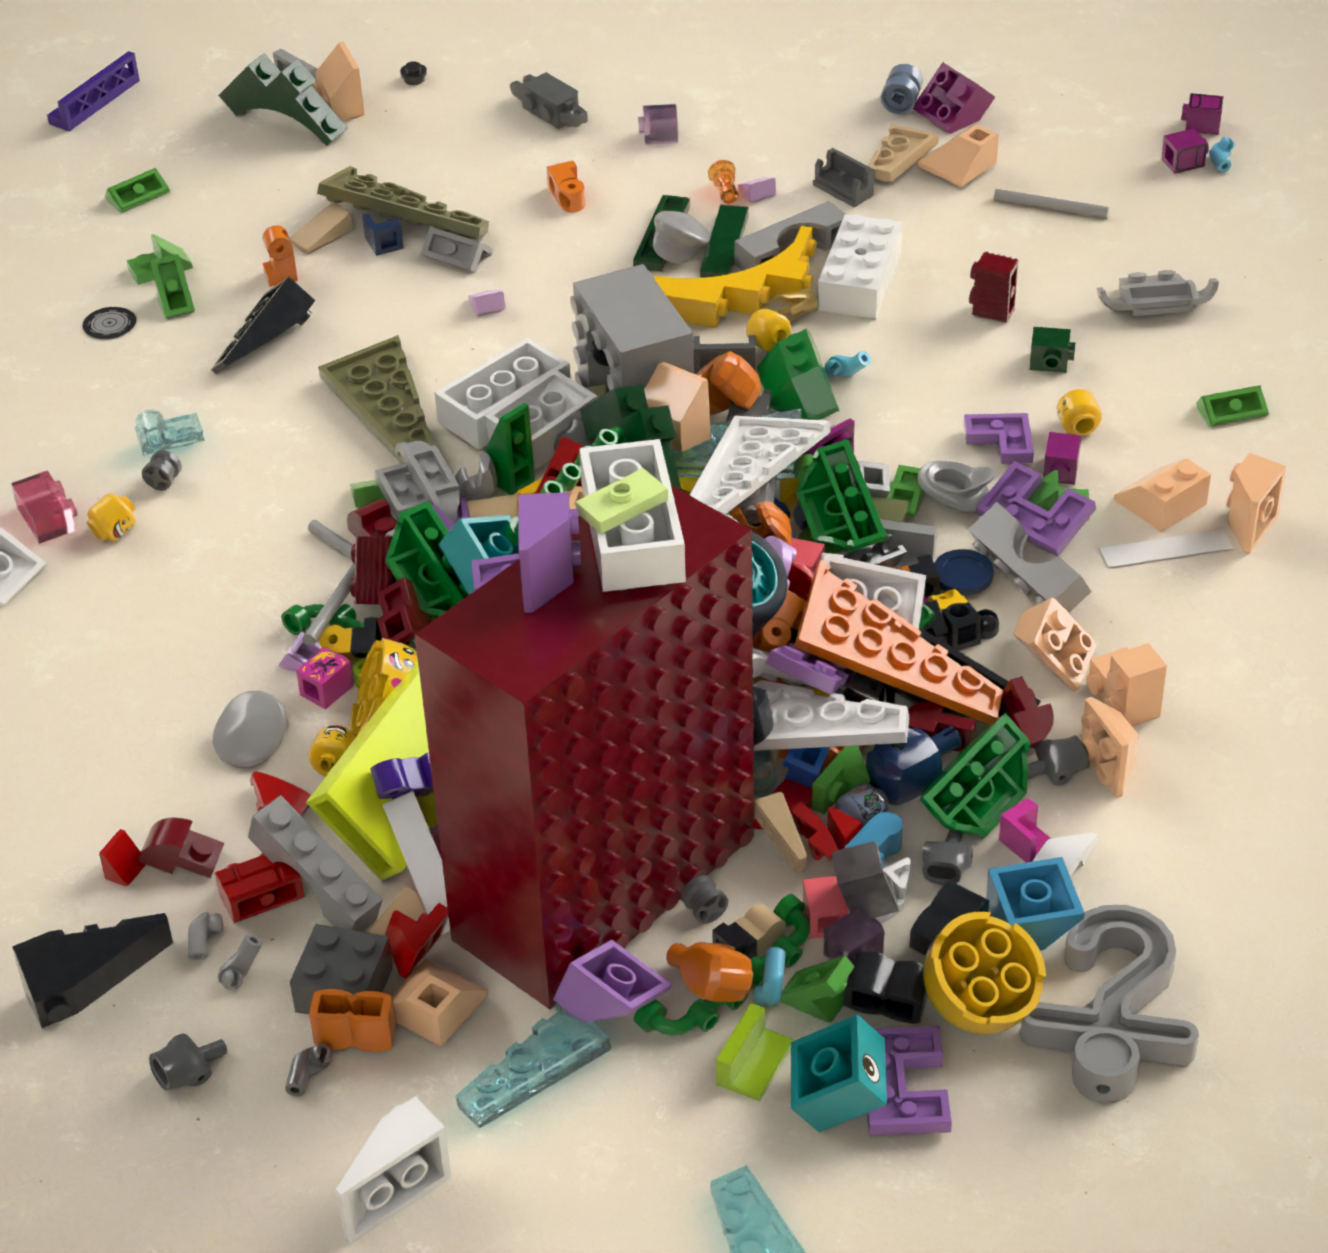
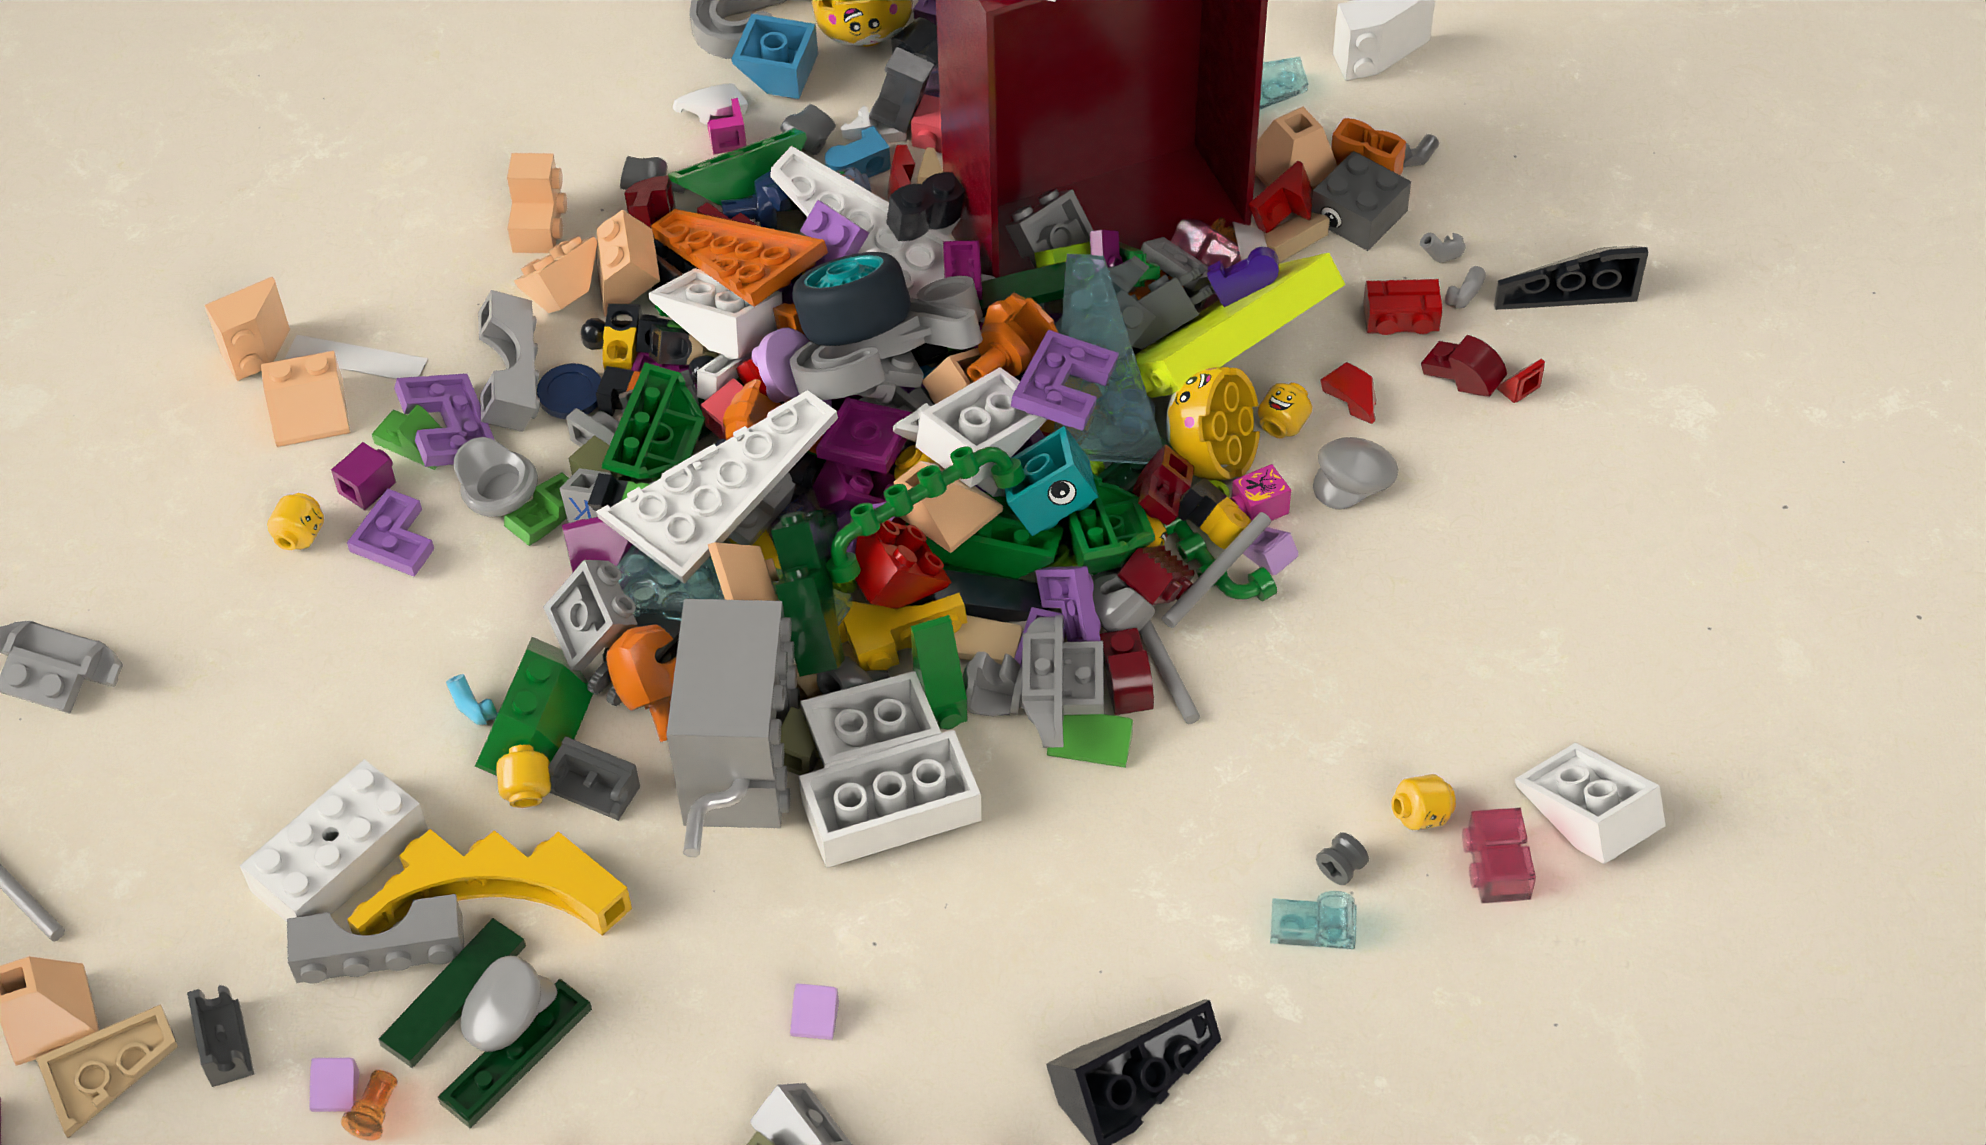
camera: 155 degrees left, 10 degrees up
(184, 1062) = (1515, 184): dark grey piece -> none
(290, 839) = (1371, 278): light grey arch -> none
(380, 393) = (1029, 888): olive wing -> none
(788, 391) = (590, 612): none -> light grey plate
(804, 302) = (449, 823): pearl gold piece -> none
(842, 827) = (875, 168): red slope -> none
(946, 906) = (846, 78): black brick -> none
(994, 286) = (227, 716): dark red brick -> none
(996, 645) = (625, 259): none -> light nougat slope
(1051, 349) = (241, 625): dark green brick -> none
(1109, 744) = (598, 155): light nougat slope -> none
(1233, 406) = (128, 490): bright green slope -> none

